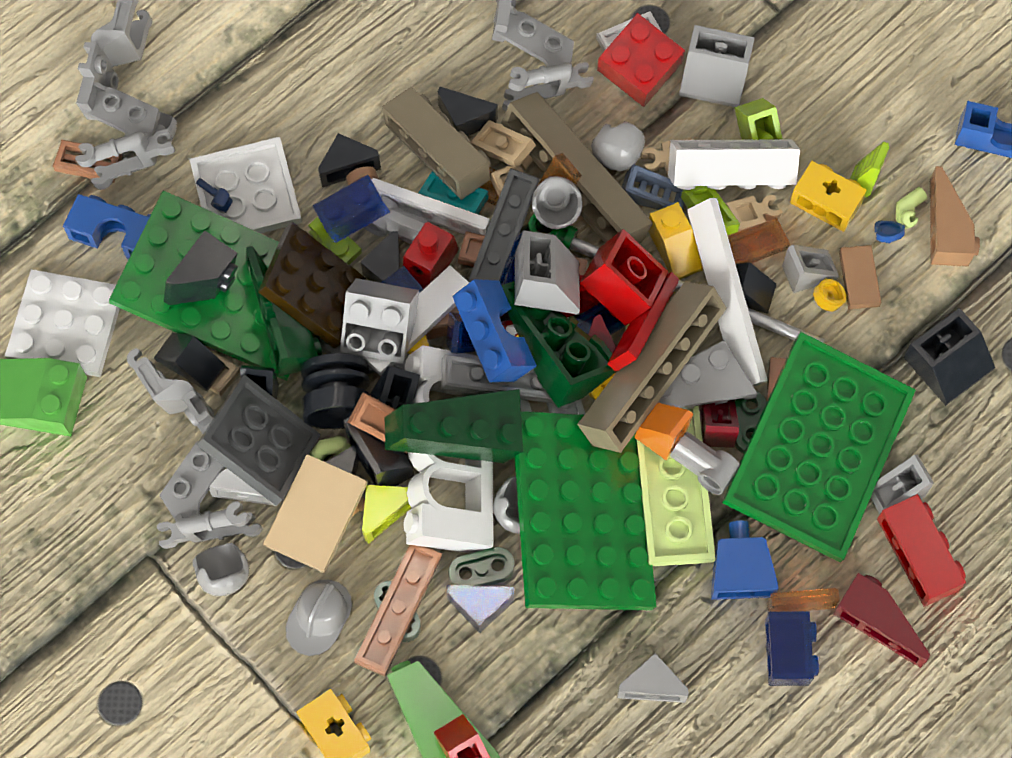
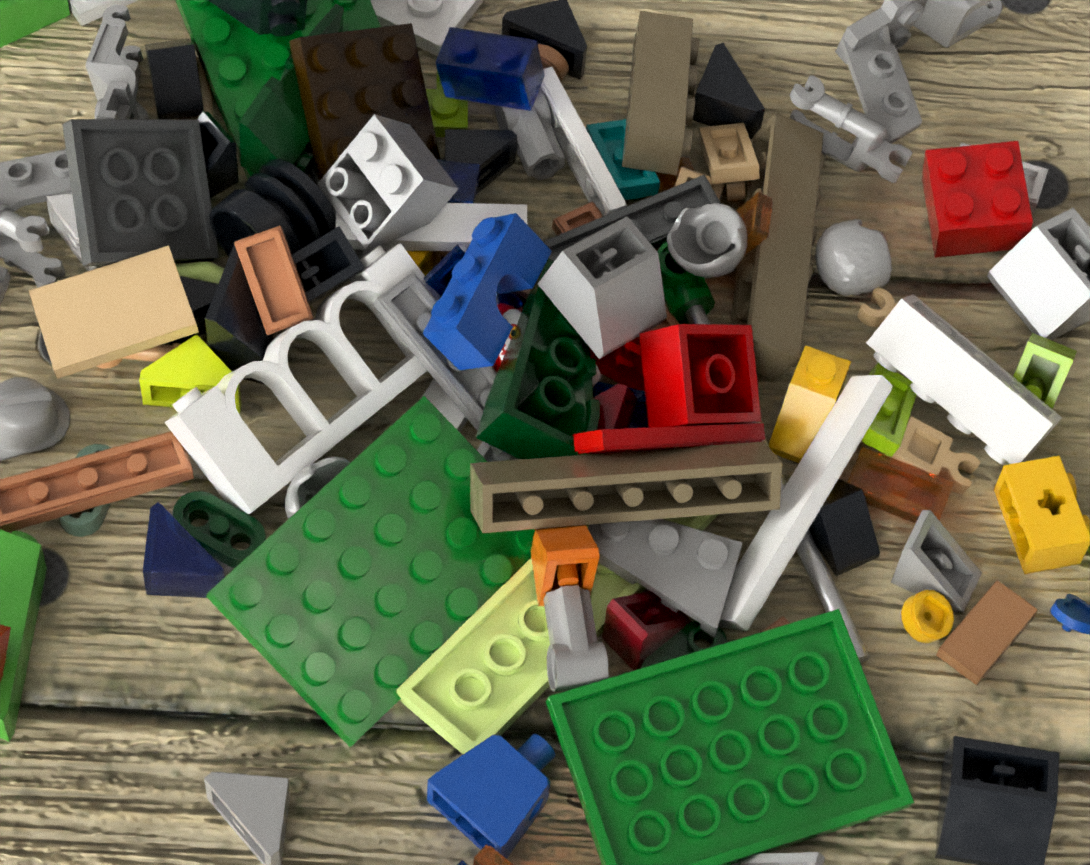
camera: 40 degrees right, 10 degrees down
(431, 253) = (525, 176): red torso -> none
(461, 427) = (341, 349): dark green wedge -> none
(647, 177) = (852, 320): sand blue slope -> none

